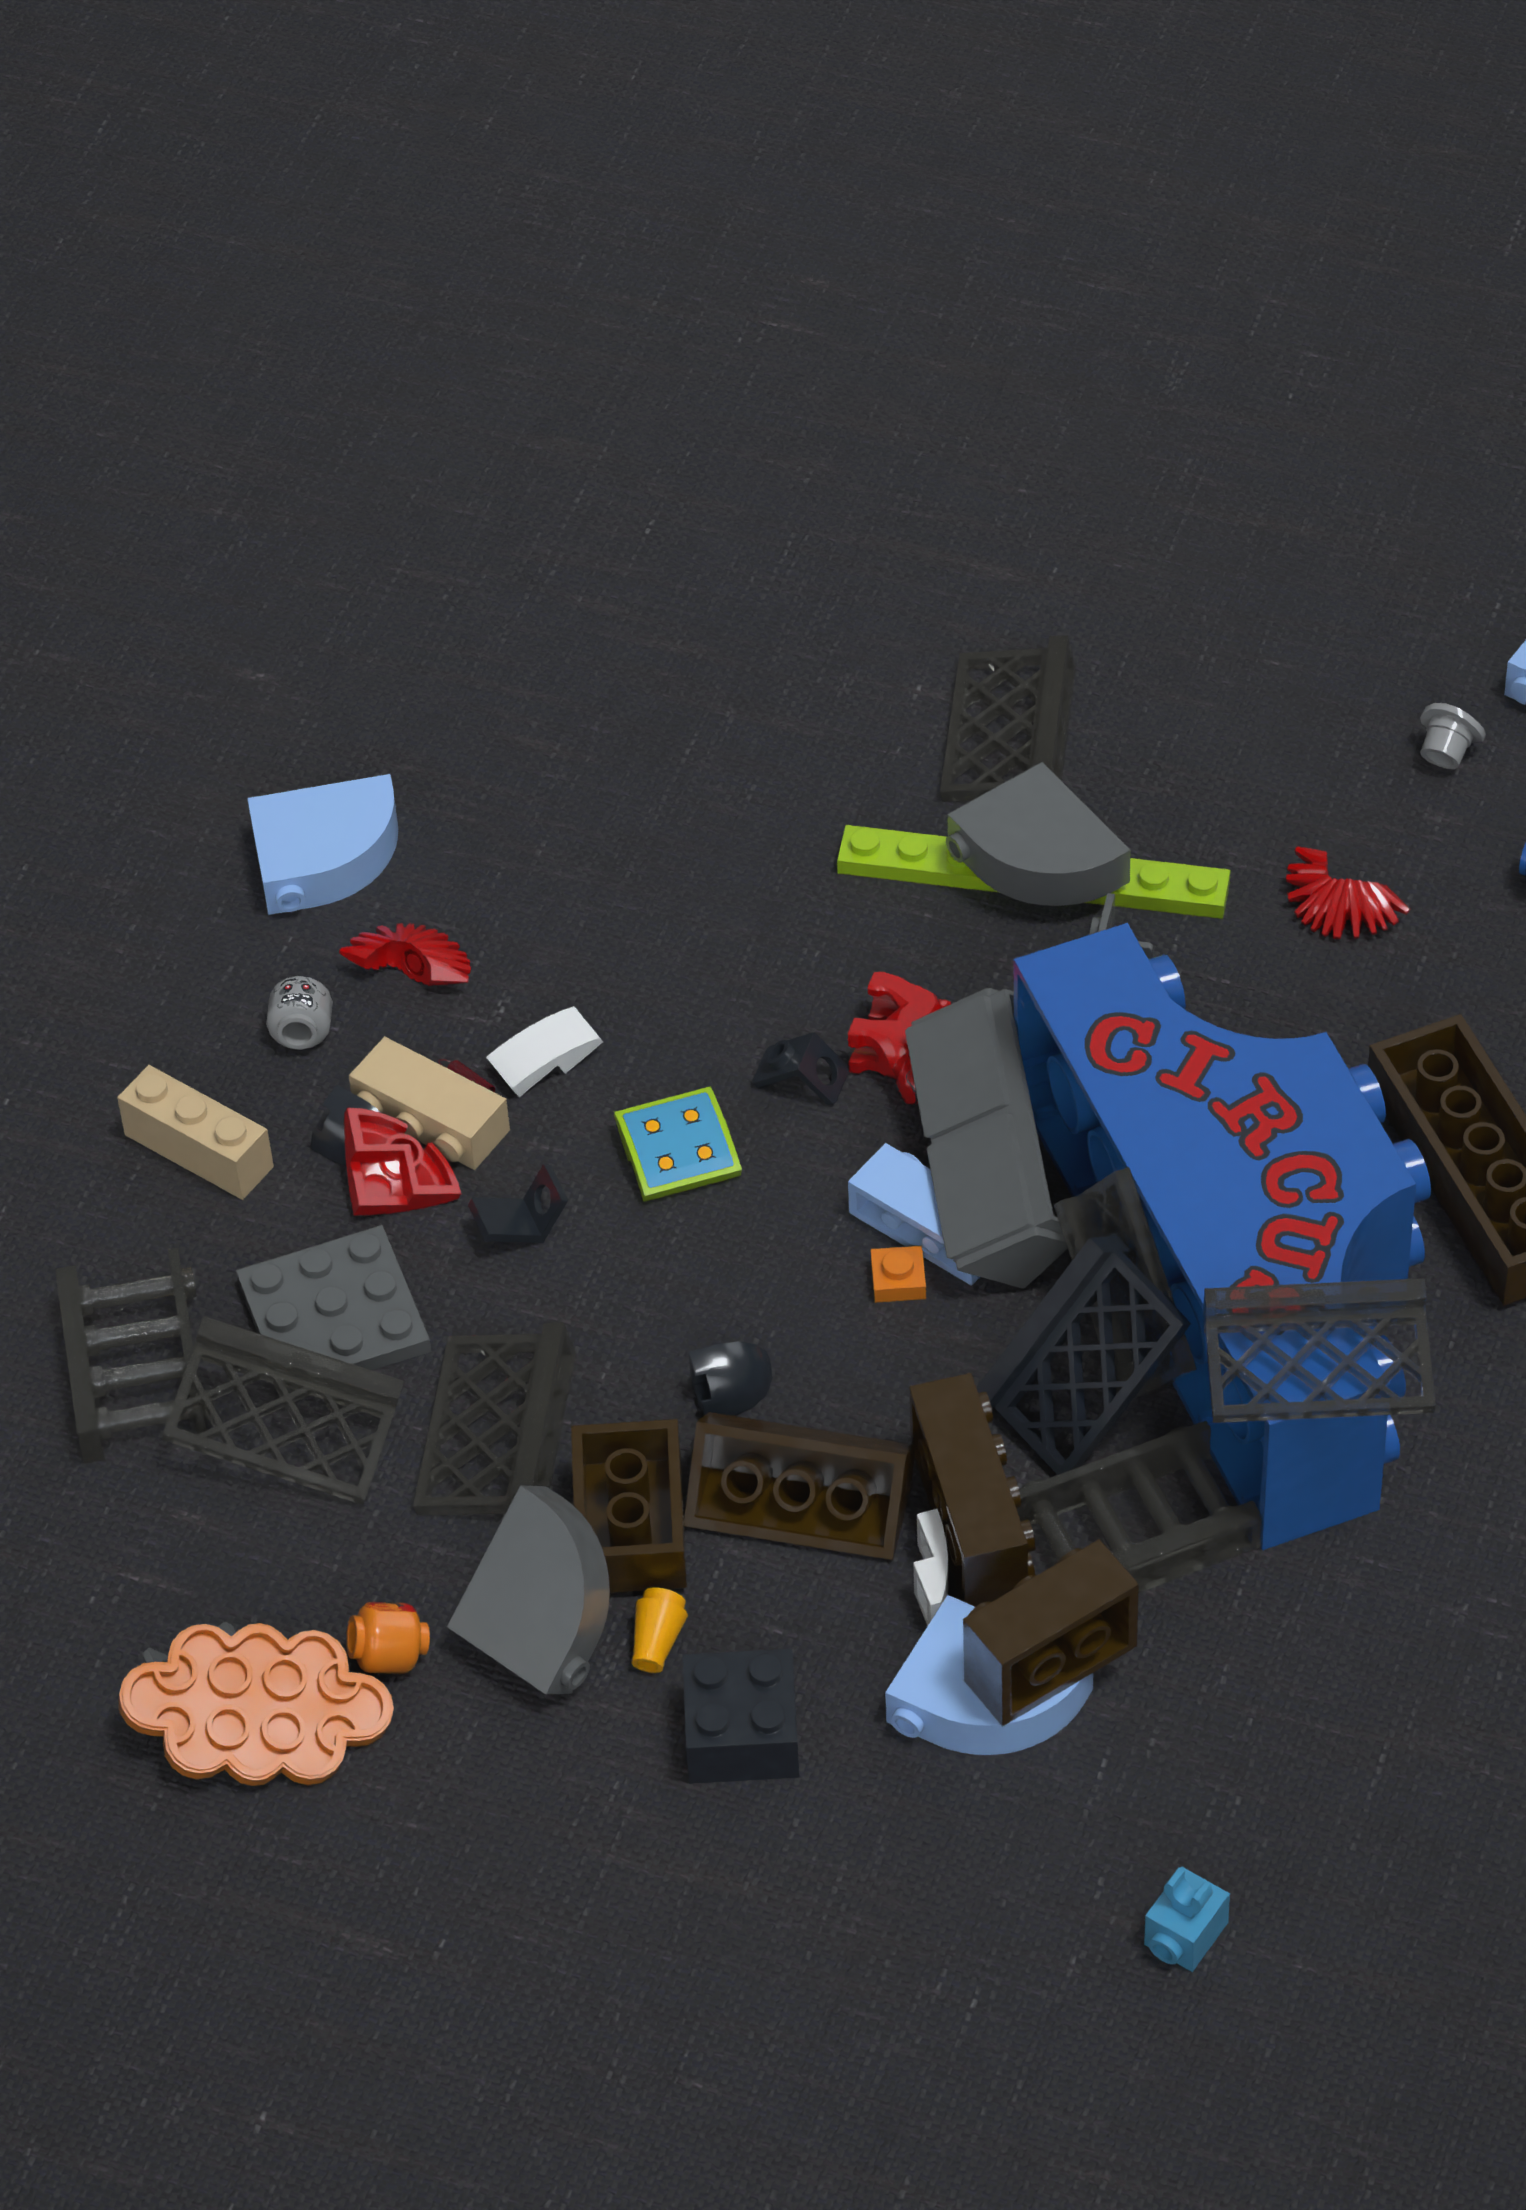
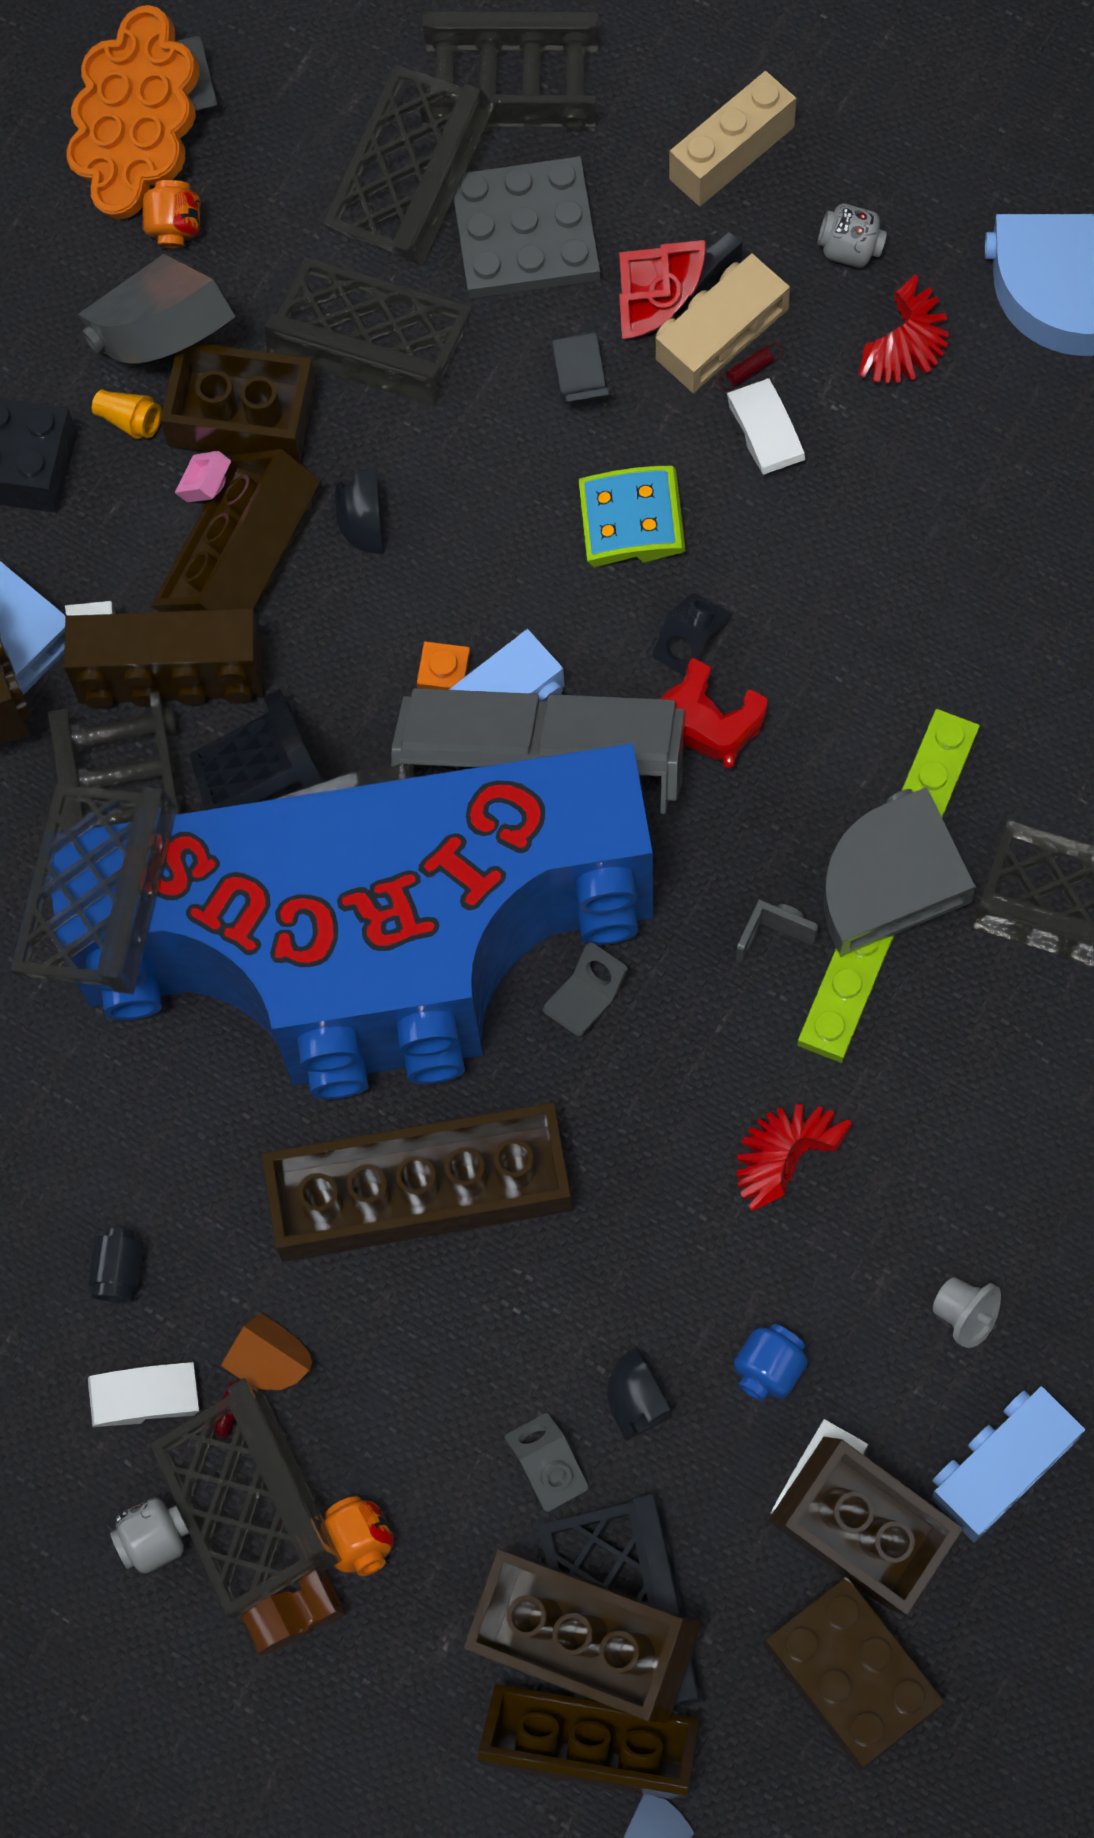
camera: 105 degrees right, 20 degrees up
(725, 1532) = (203, 477): none -> bright pink plate

